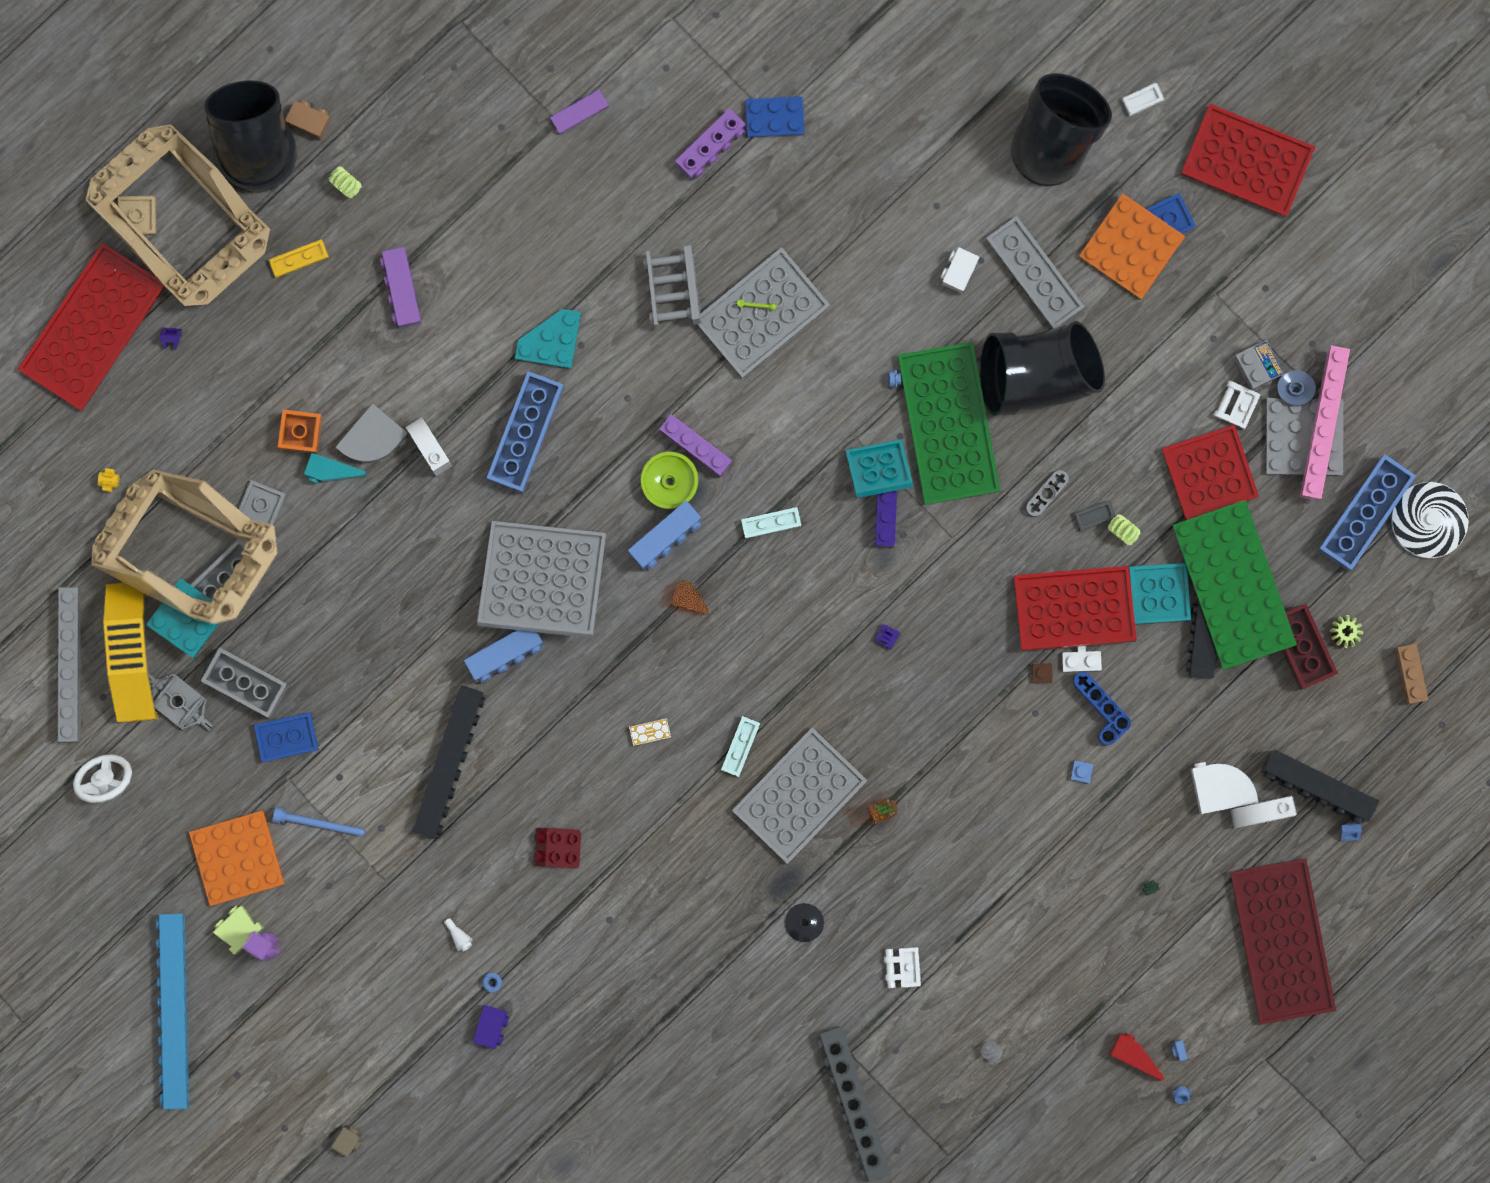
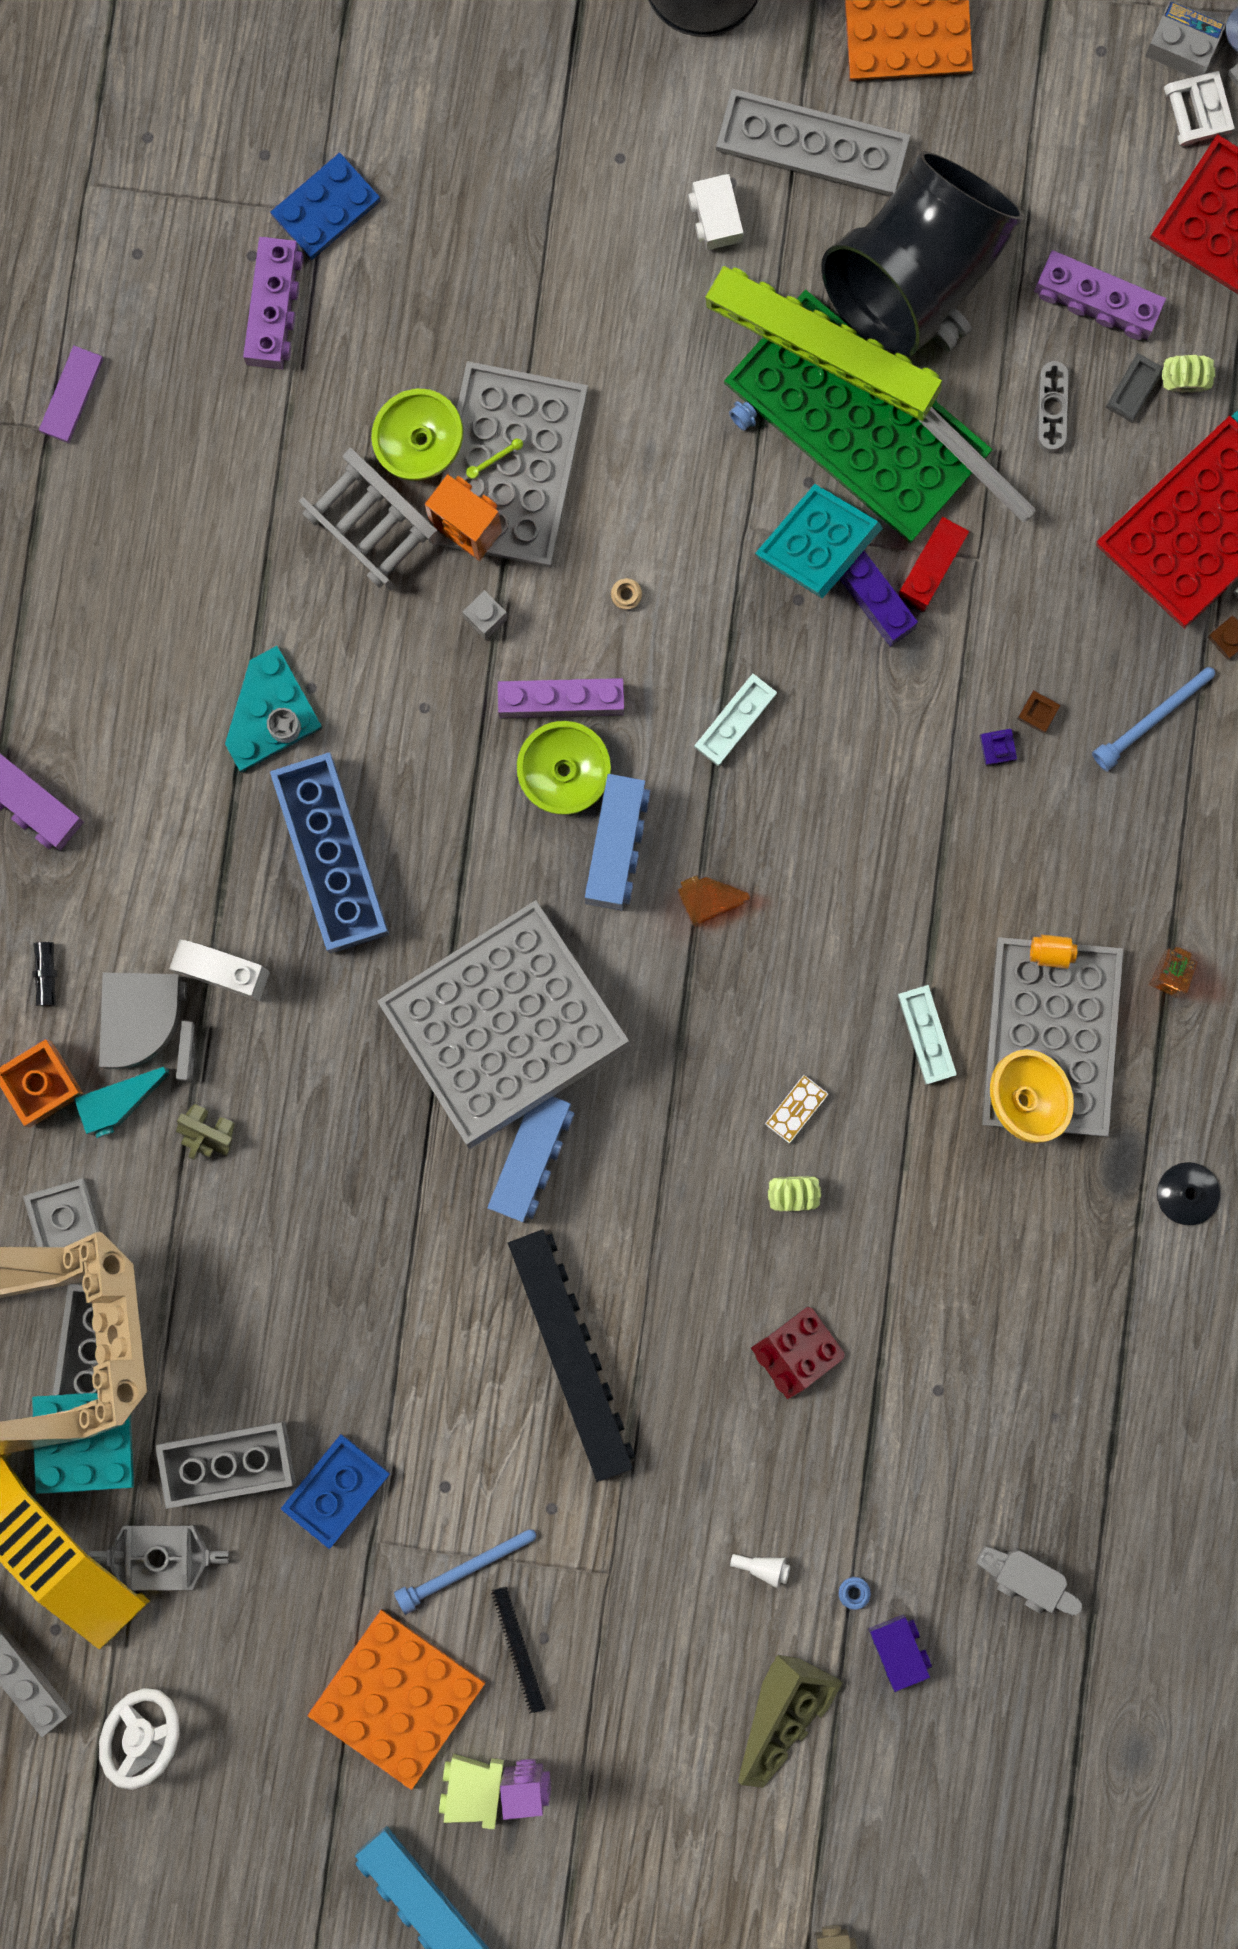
camera: 35 degrees left, 0 degrees up
(312, 880) = (519, 1649): none -> black axle
(344, 381) = (44, 973): none -> black pin
(357, 520) = (202, 1137): none -> olive hips
(374, 481) = (186, 1053): none -> light grey tile
(417, 1009) = (786, 1705): none -> olive wedge
(552, 354) = (281, 720): none -> light grey wheel
(579, 1041) = (1029, 1578): none -> light grey hinge
(615, 770) = (794, 1193): none -> yellowish green gear
(691, 377) = (485, 615): none -> light grey brick
(716, 323) = (464, 516): none -> orange brick
(725, 253) = (406, 420): none -> lime dish
(763, 416) = (626, 584): none -> tan plate
(772, 817) = (1042, 1091): none -> yellow dish
(831, 754) = (1053, 951): none -> light orange brick
(919, 635) = (1038, 712): none -> reddish brown plate
(927, 523) = (933, 564): none -> red slope
(937, 682) = (1108, 754): none -> medium blue piece
(958, 376) = (823, 342): none -> lime brick
(985, 489) = (978, 466): none -> light grey axle
(1027, 417) = (951, 329): none -> light grey wheel
(1113, 457) = (1099, 296): none -> medium lavender brick

